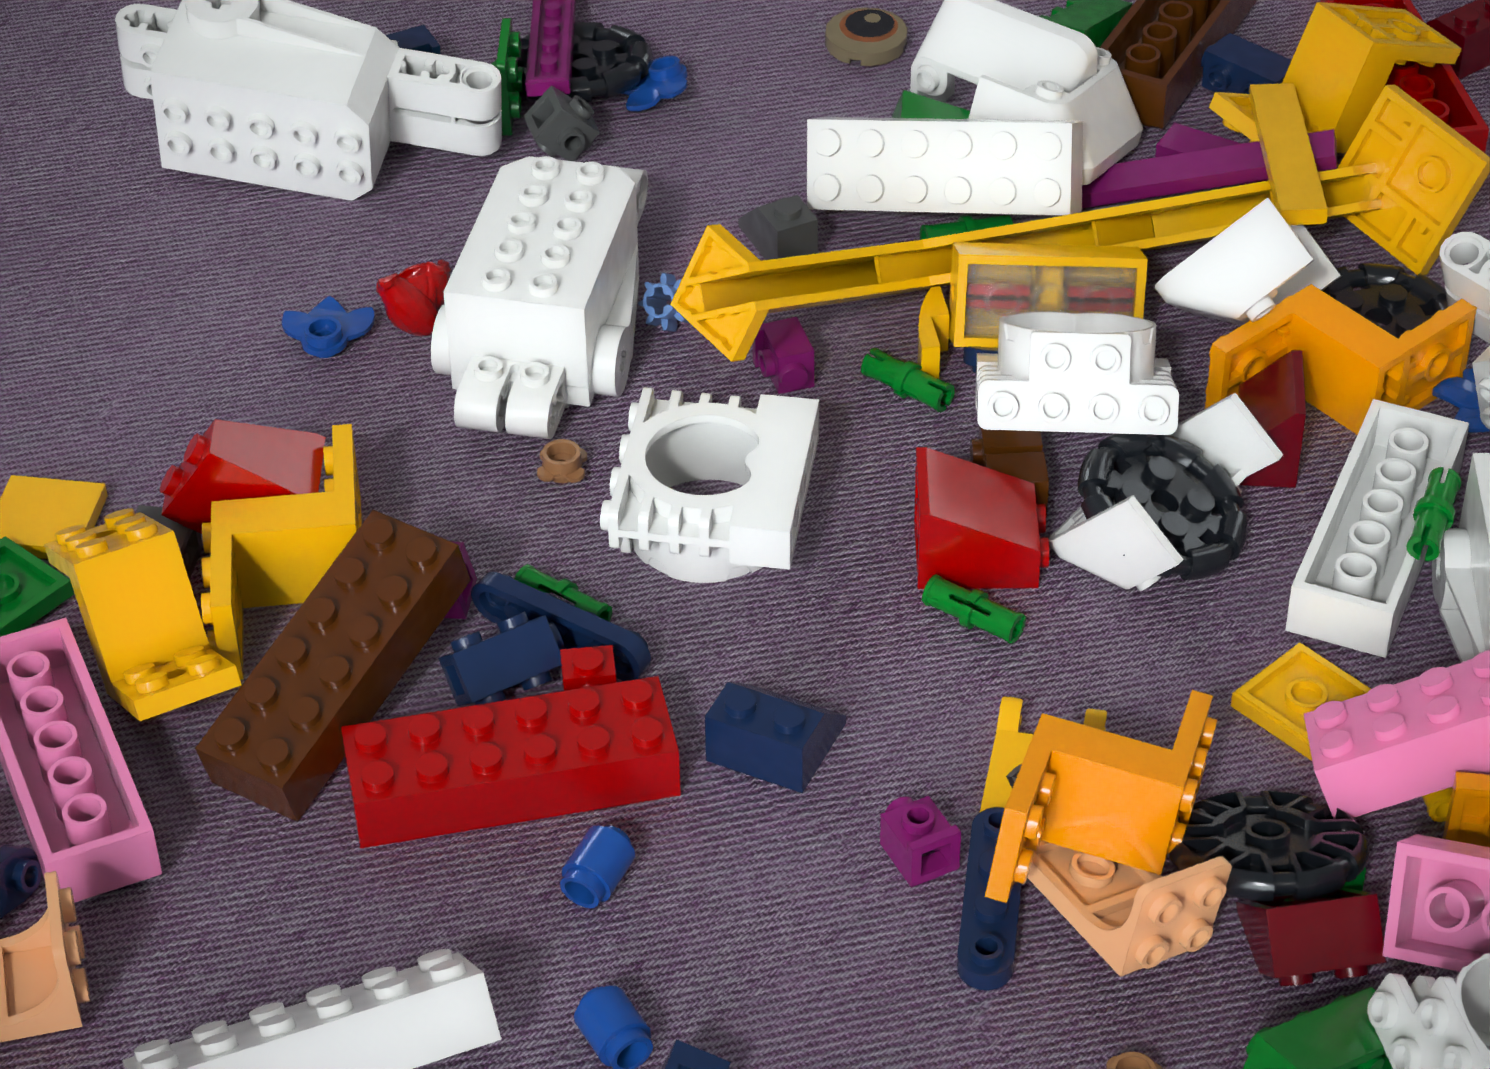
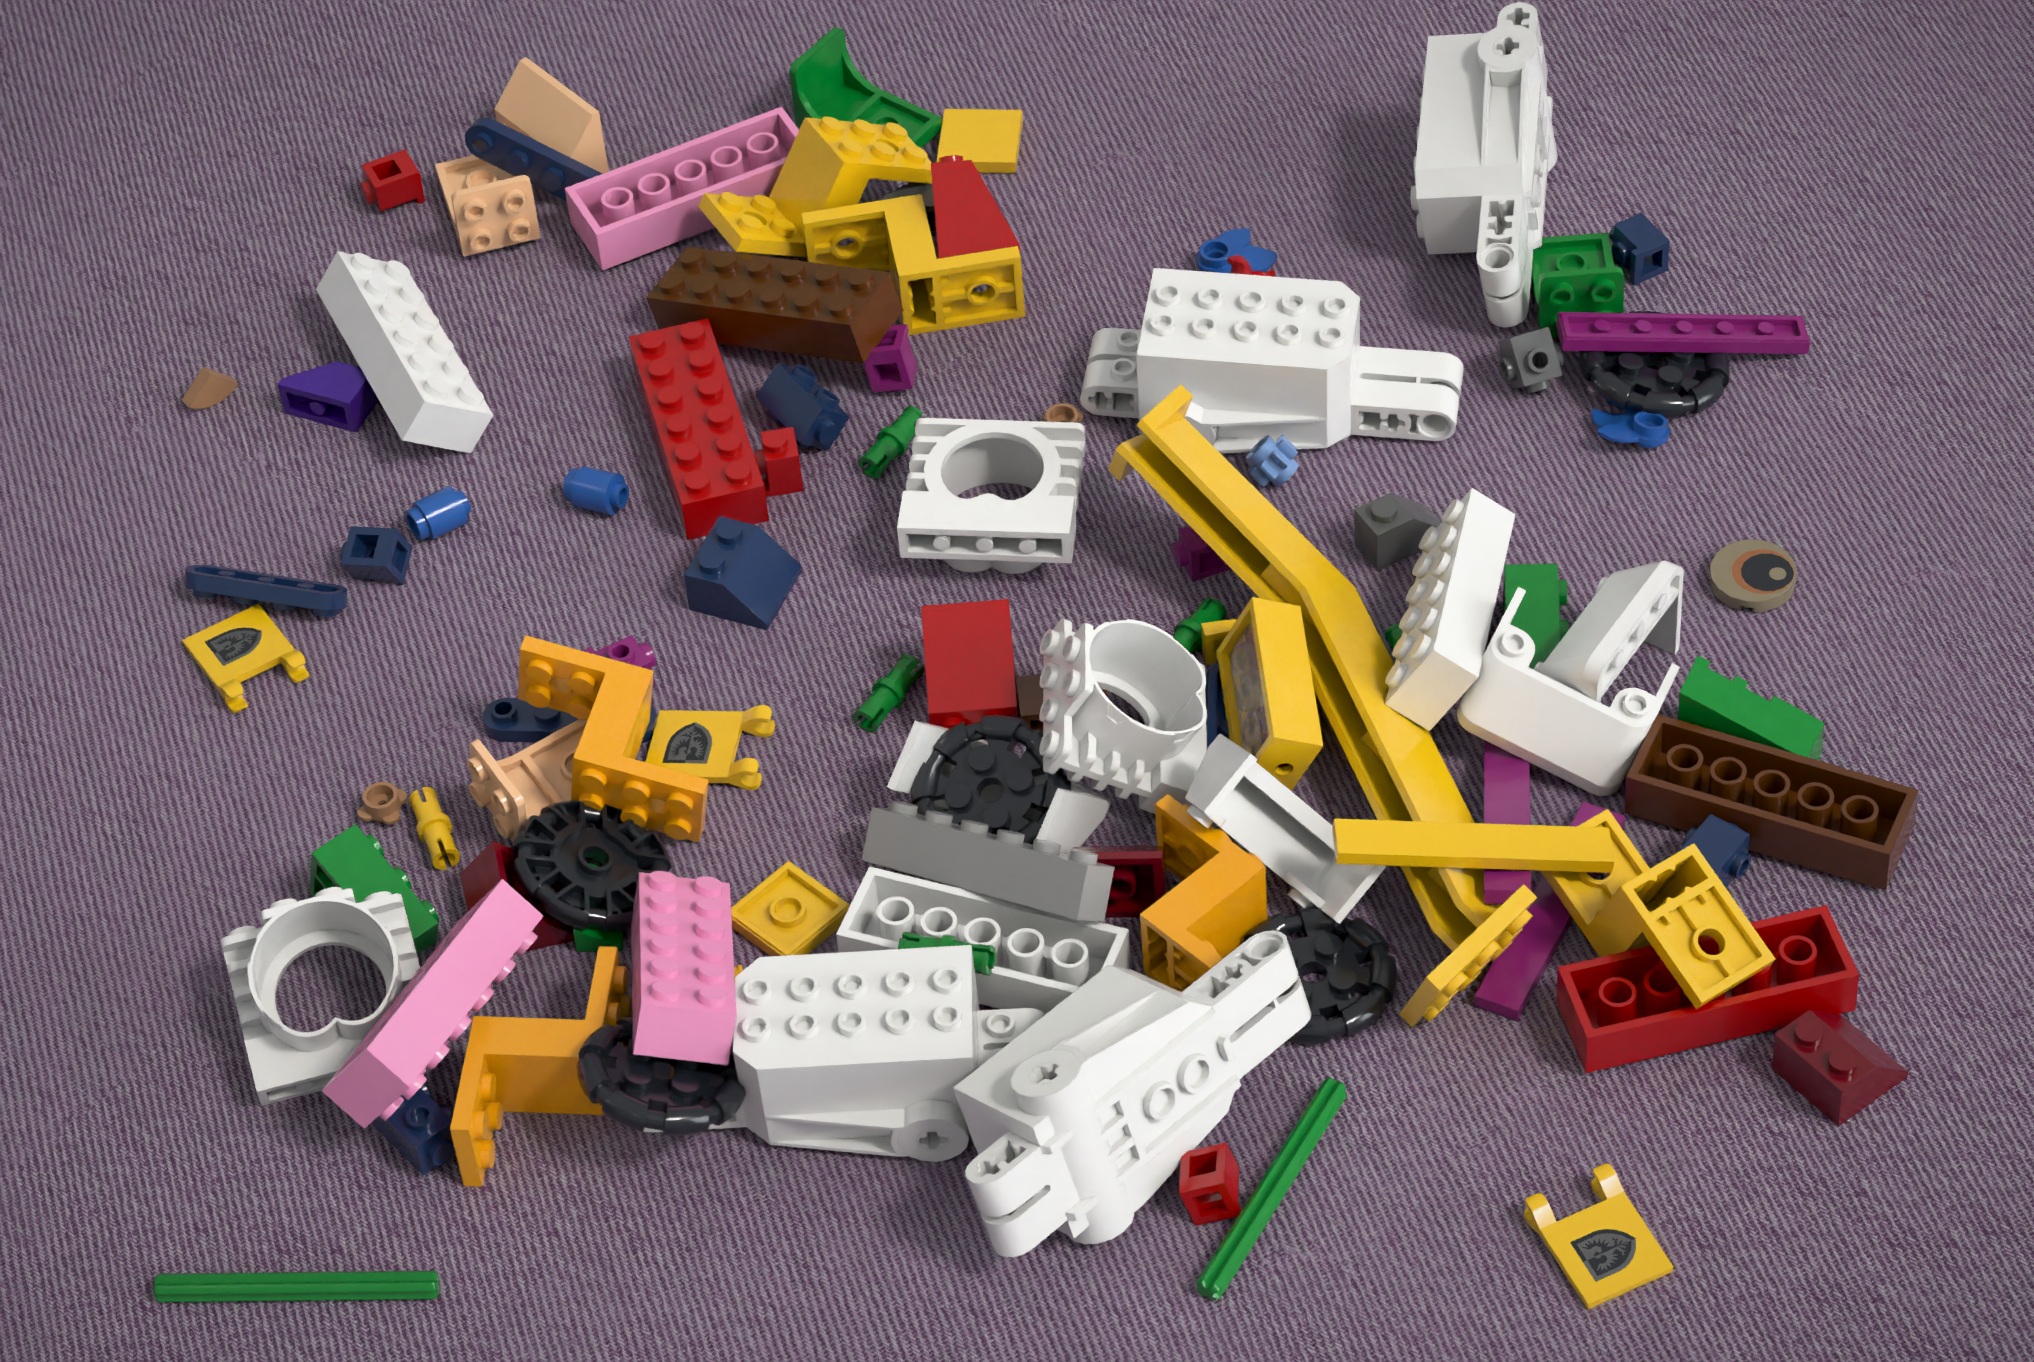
camera: 90 degrees right, 5 degrees up
(501, 597) = (852, 440): dark blue plate -> none
(1177, 1024) = (434, 828): none -> yellow pin
(1289, 493) = (987, 862): none -> light grey brick

